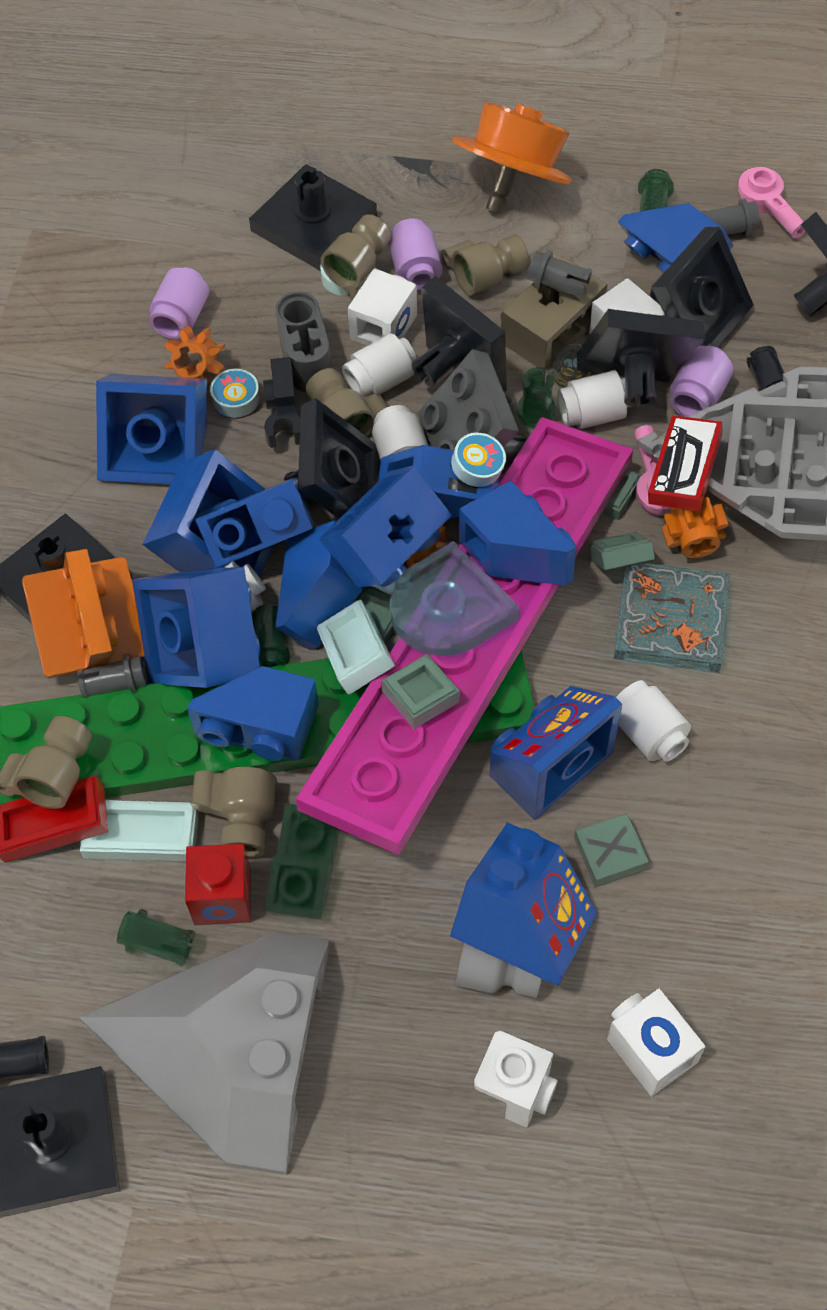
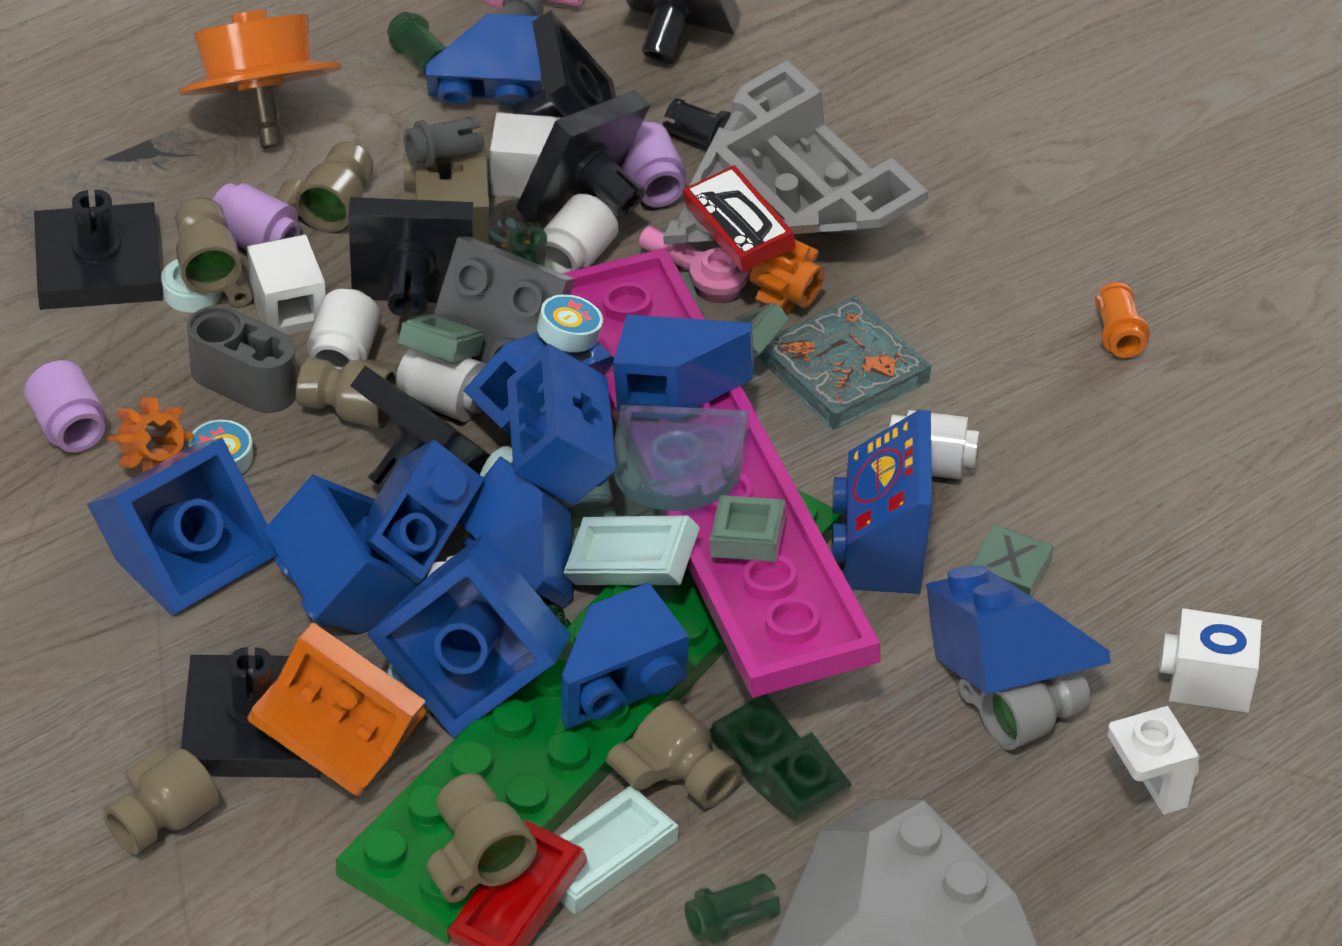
camera: 50 degrees left, 15 degrees down
(113, 677) = (424, 747): dark grey pin -> none
(218, 884) = (740, 820): red brick -> none
(280, 395) = (285, 417): black plate -> none
(410, 412) = (441, 338): none -> sand green tile

